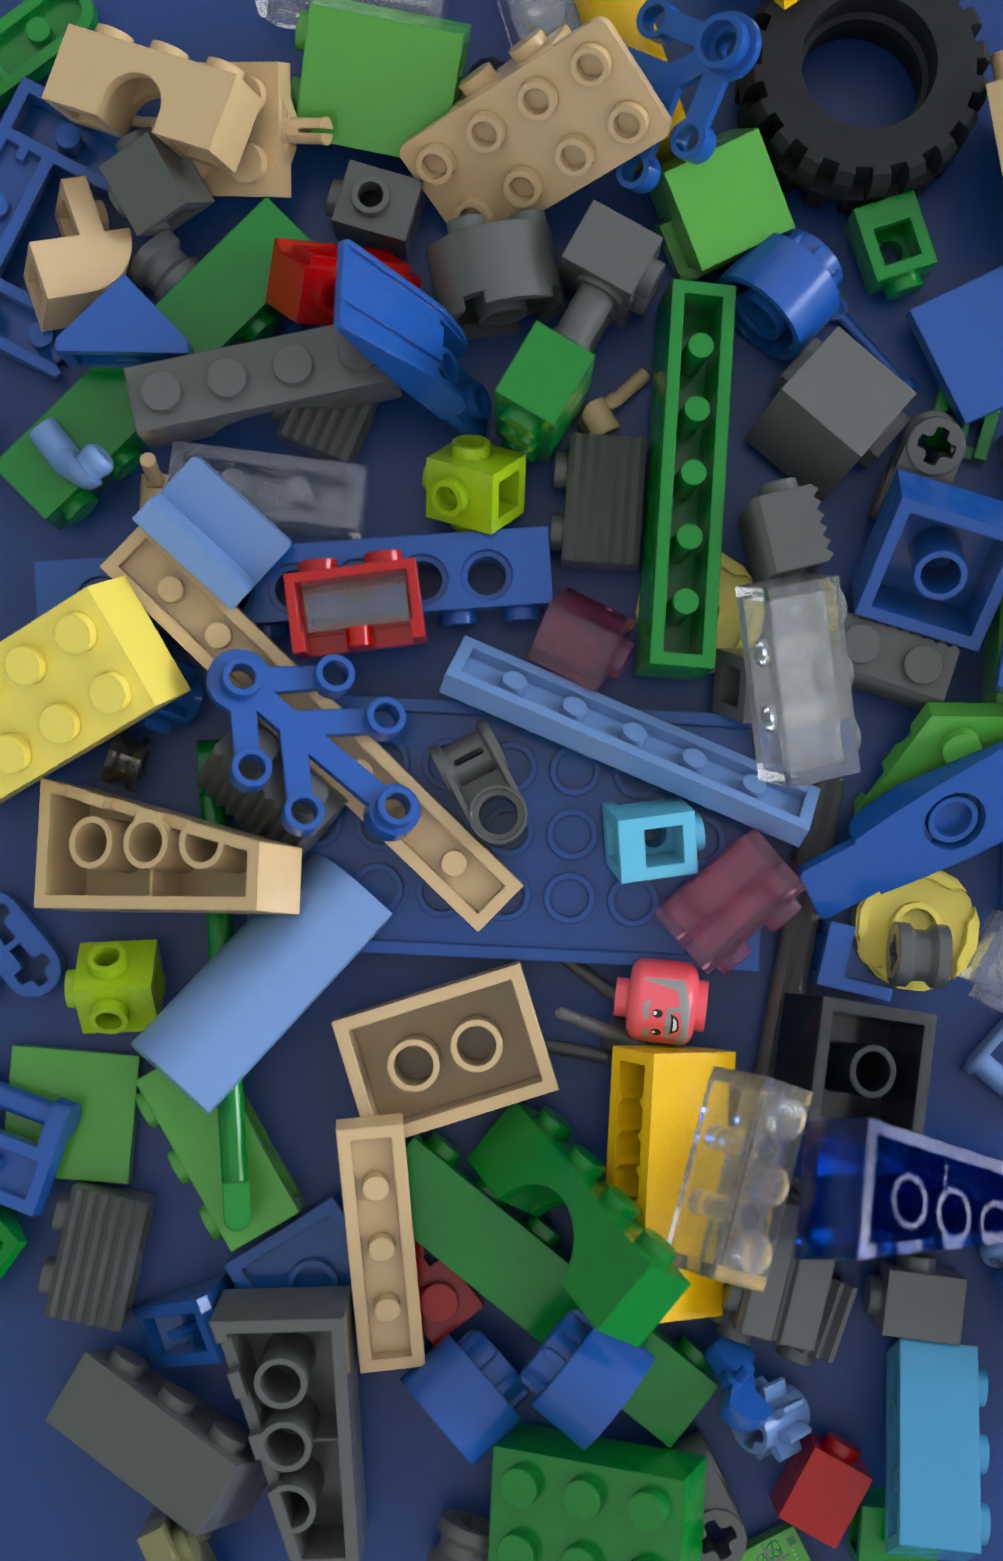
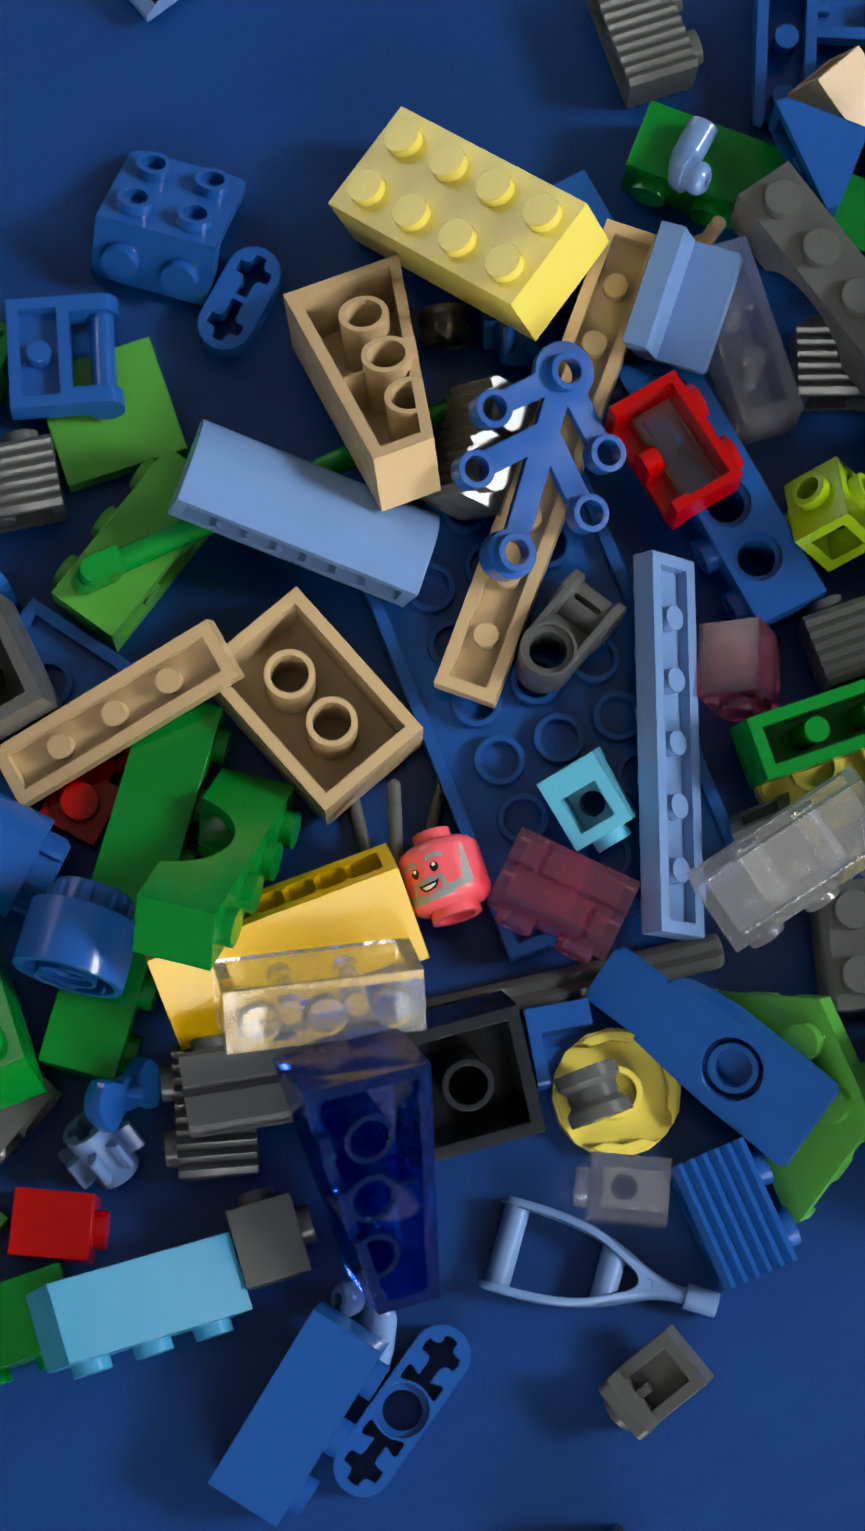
camera: 60 degrees right, 10 degrees down
(116, 985) = (244, 395): lime brick -> none

